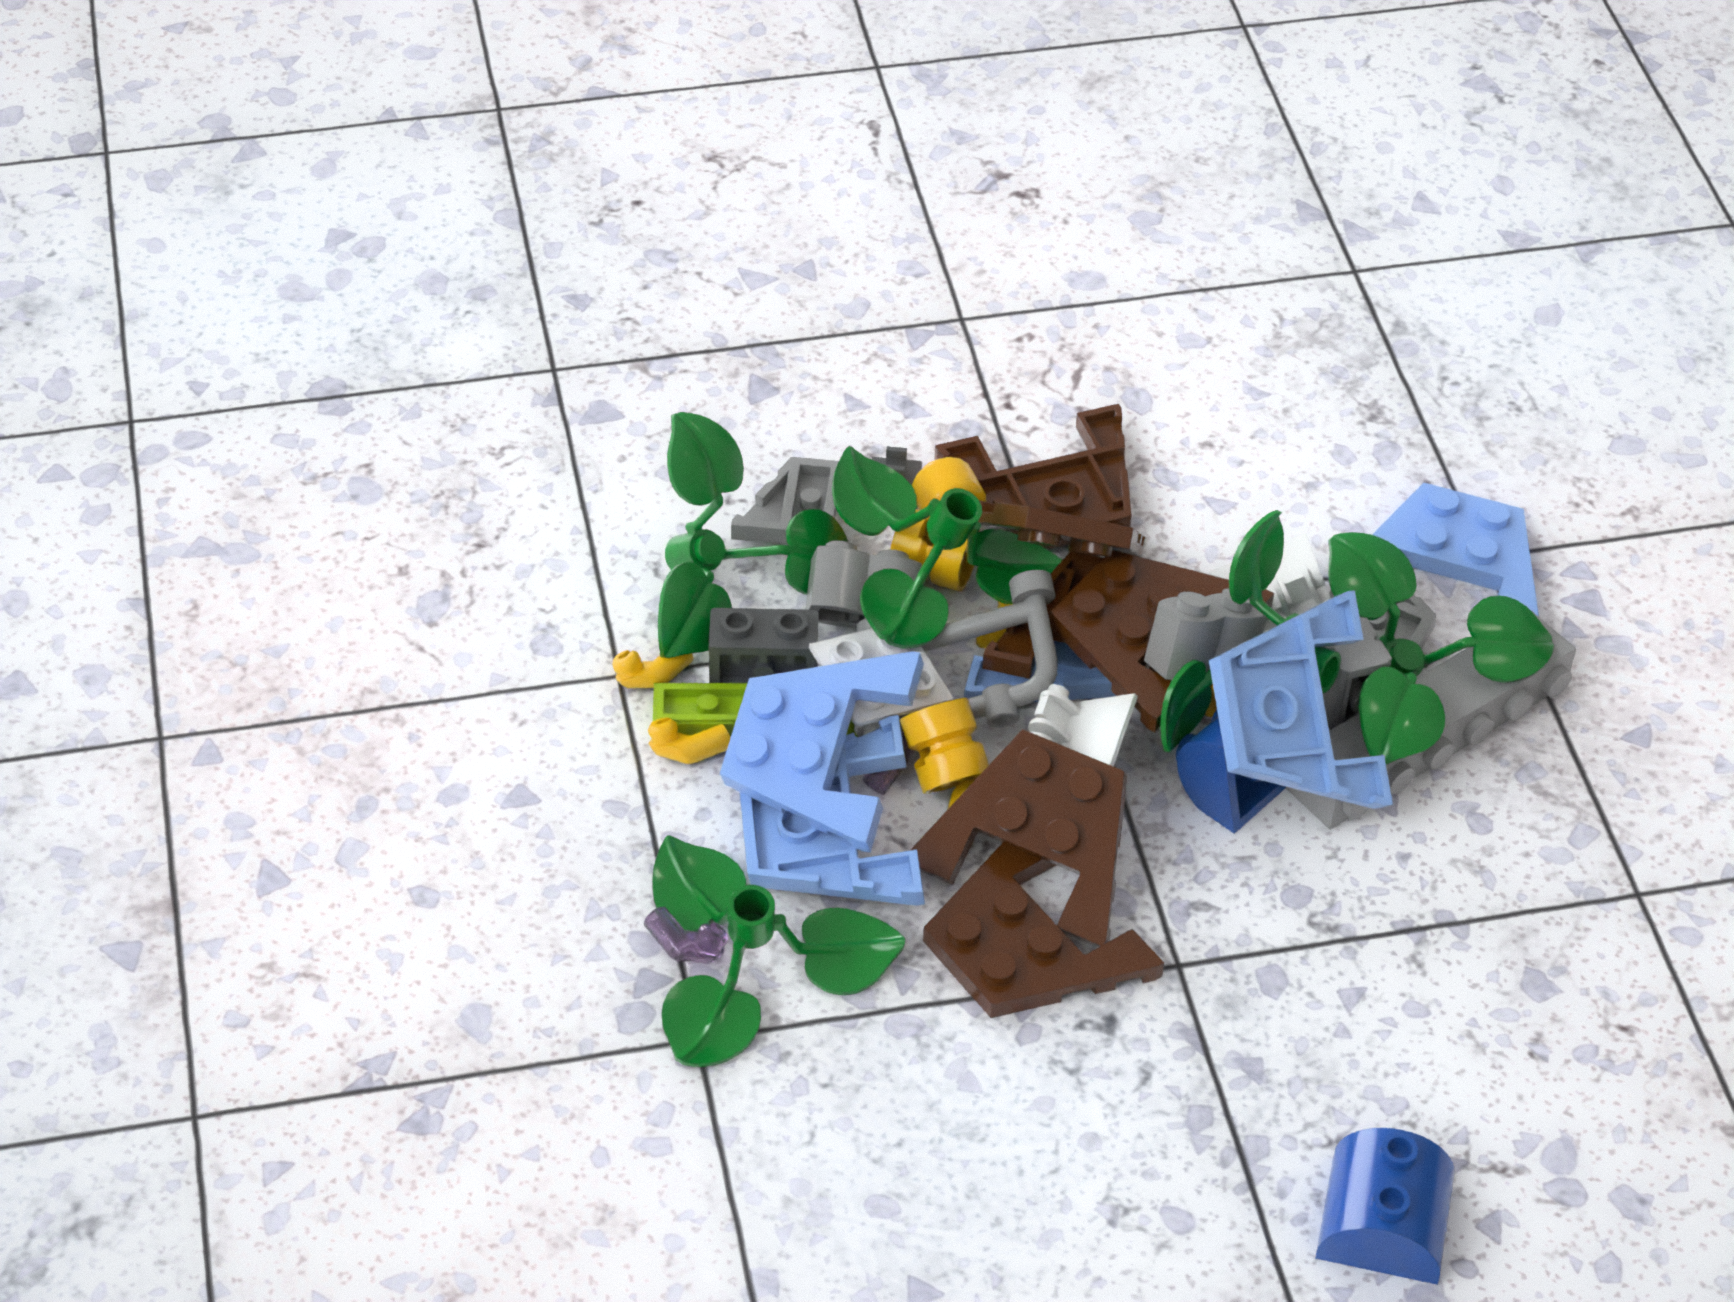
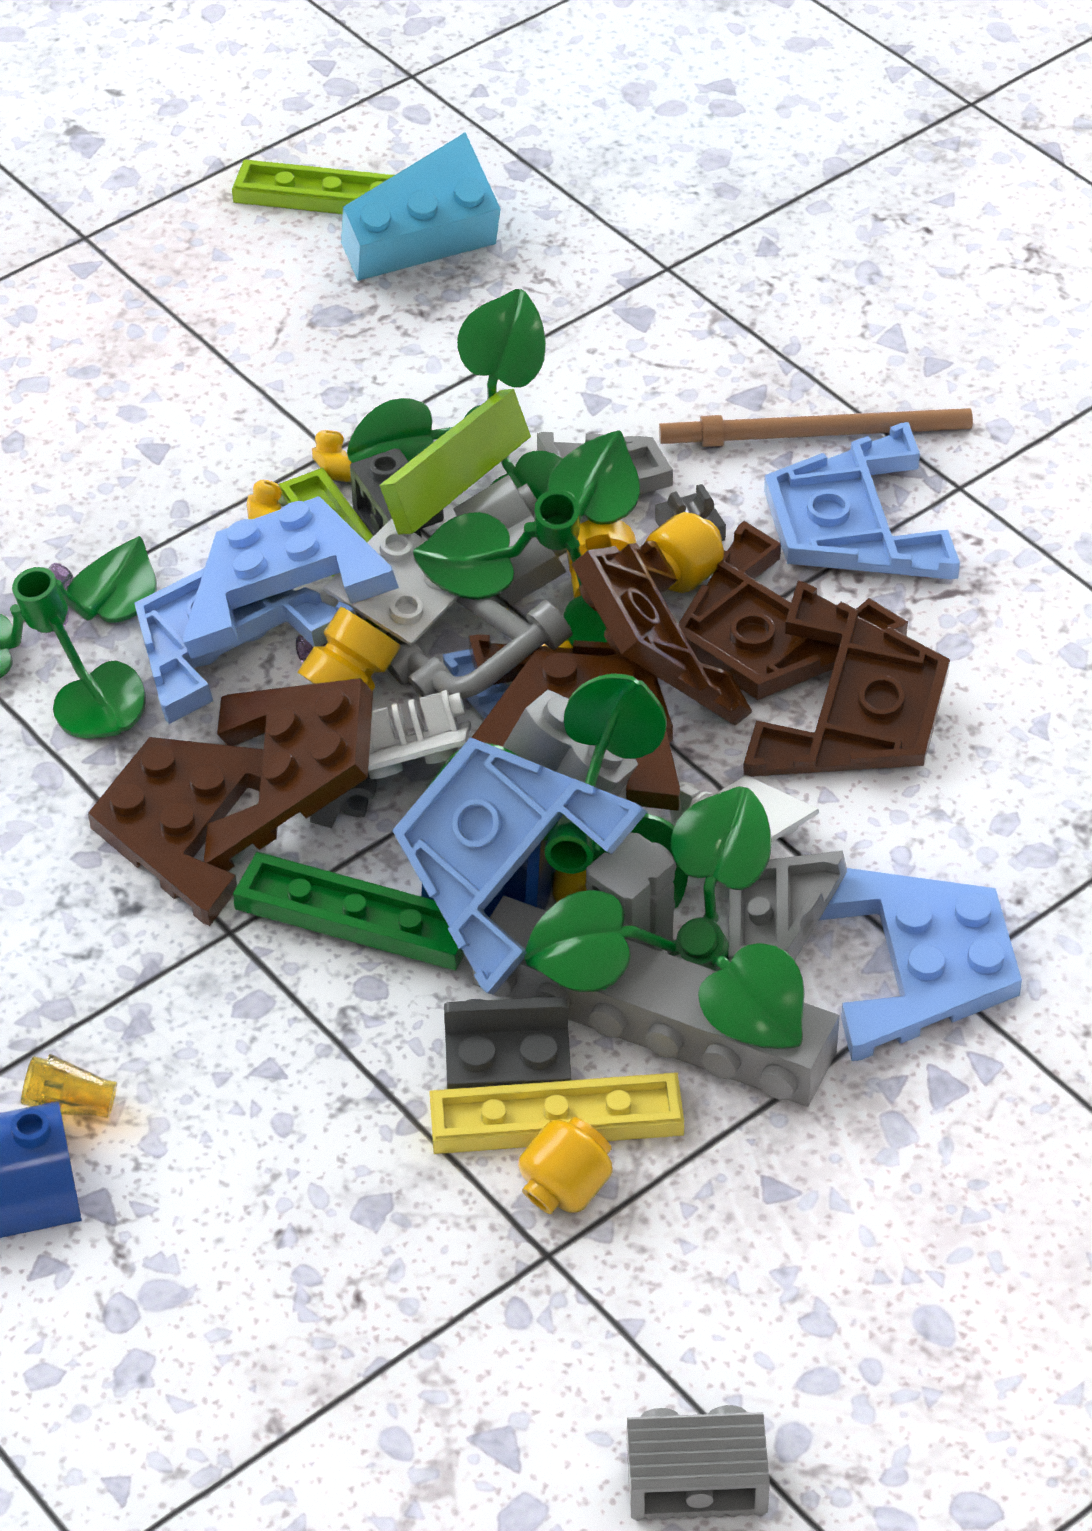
camera: 65 degrees right, 0 degrees up
(258, 536) = (301, 186): none -> lime tile
(379, 474) = (422, 213): none -> medium azure wedge
(784, 571) = (455, 461): none -> lime tile
(800, 418) = (714, 430): none -> medium nougat bar
(958, 395) = (835, 520): none -> light blue wing
(1187, 453) = (876, 702): none -> reddish brown wing
(1220, 866) = (347, 909): none -> green plate
(1314, 1138) = (74, 1087): none -> clear yellow cone
(1428, 831) = (506, 1041): none -> dark grey bracket
(1502, 831) = (517, 1112): none -> light yellow tile
(1578, 837) = (565, 1166): none -> yellow head

